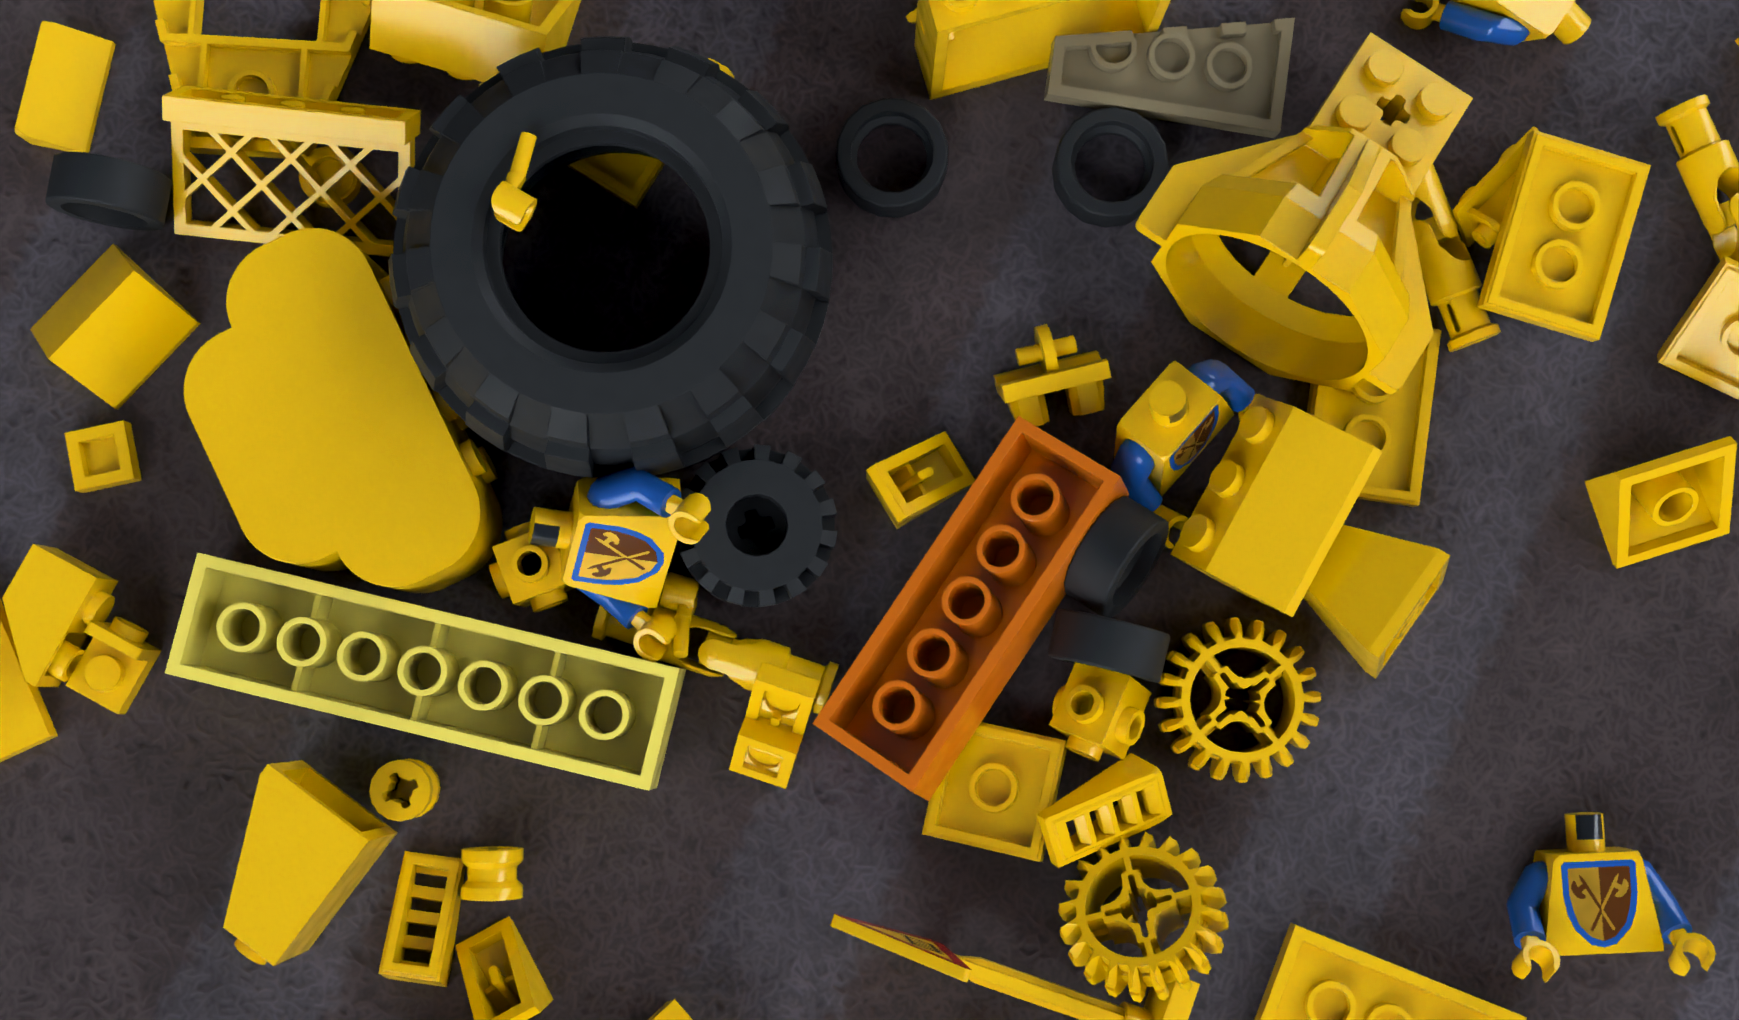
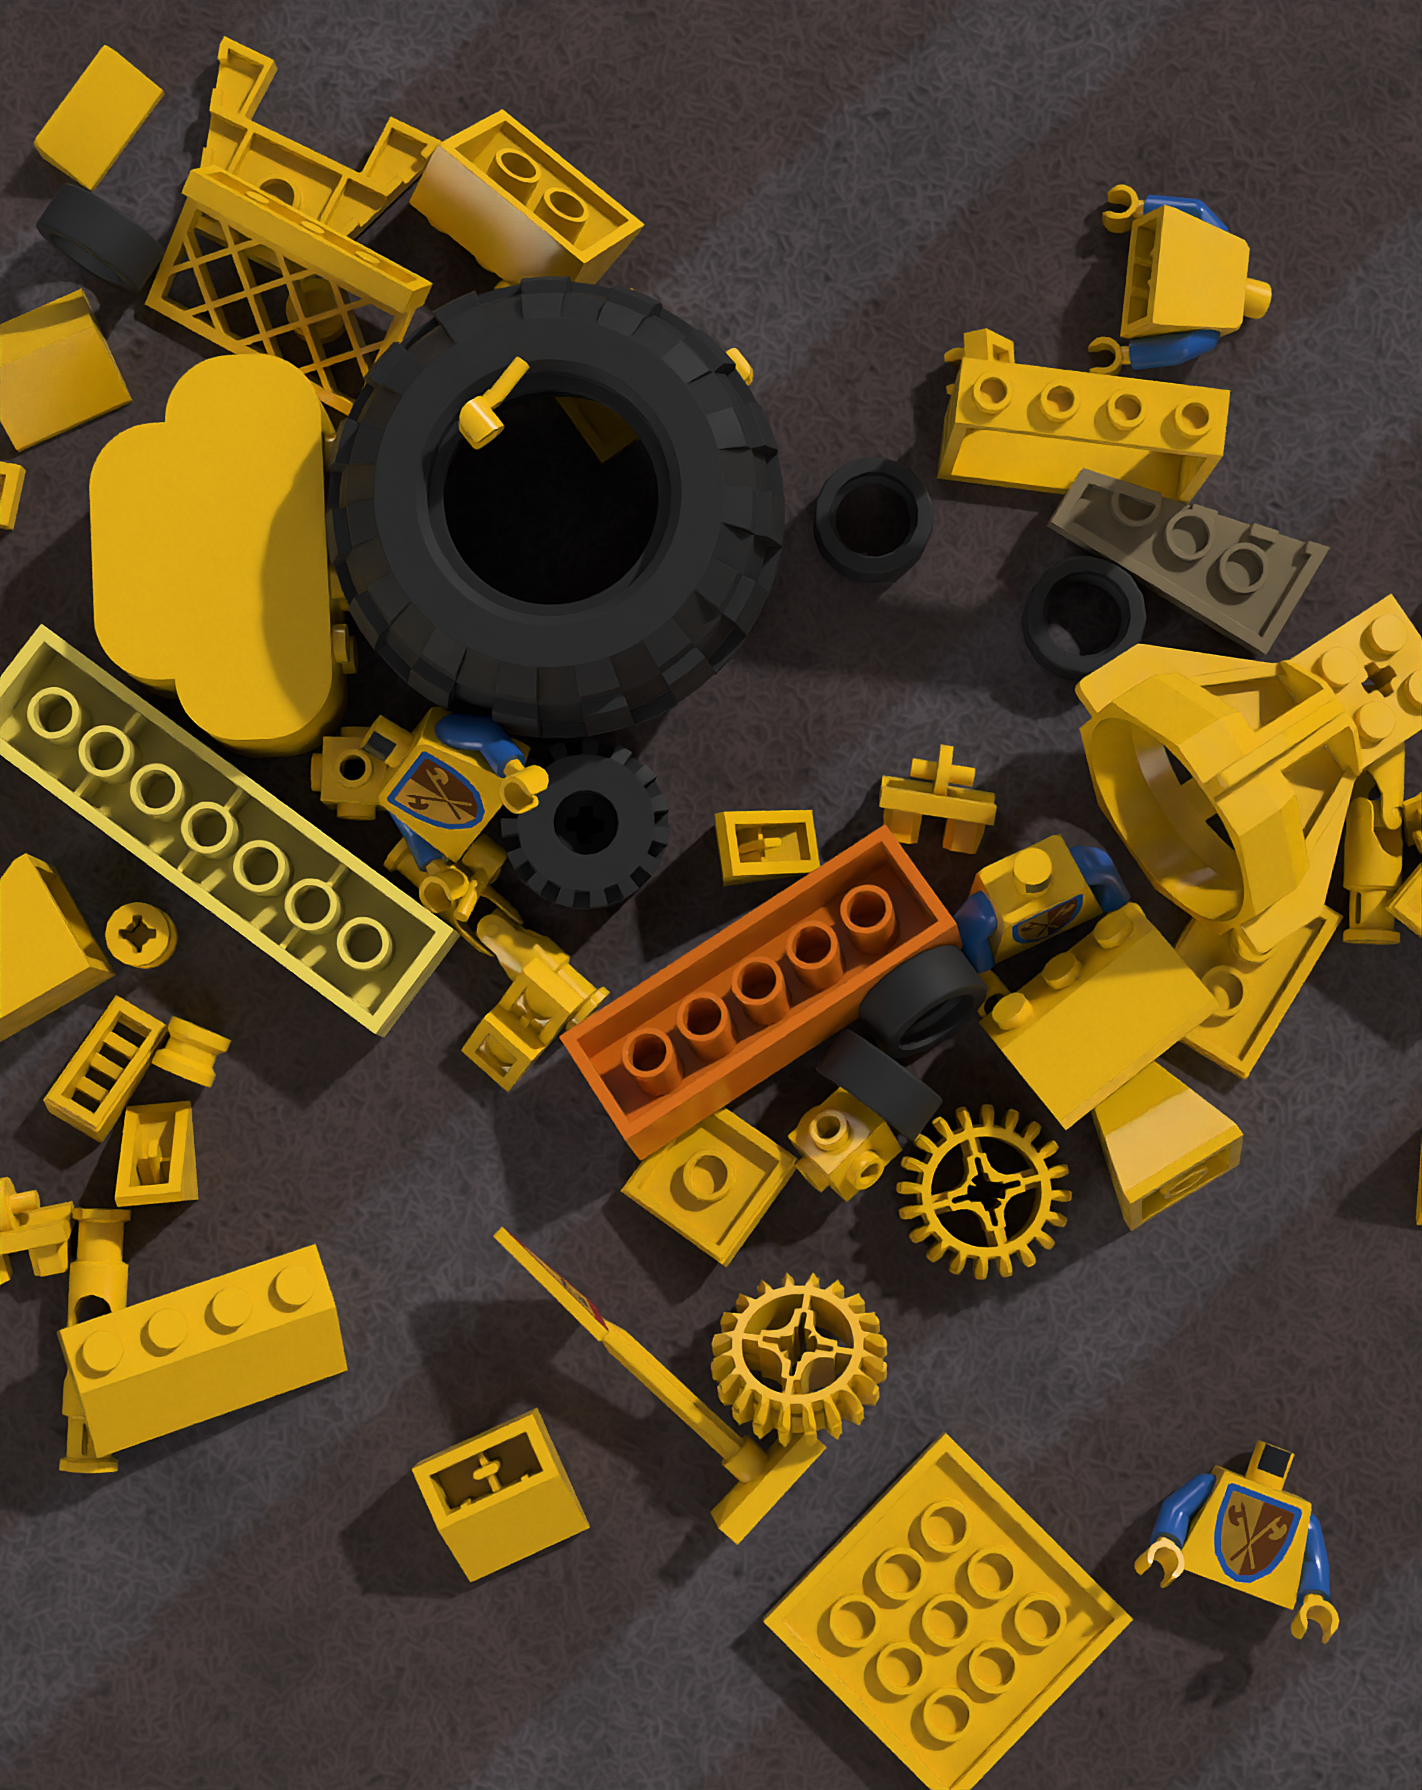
camera: 25 degrees right, 0 degrees up
(1141, 805) = (844, 1253): yellow slope -> none

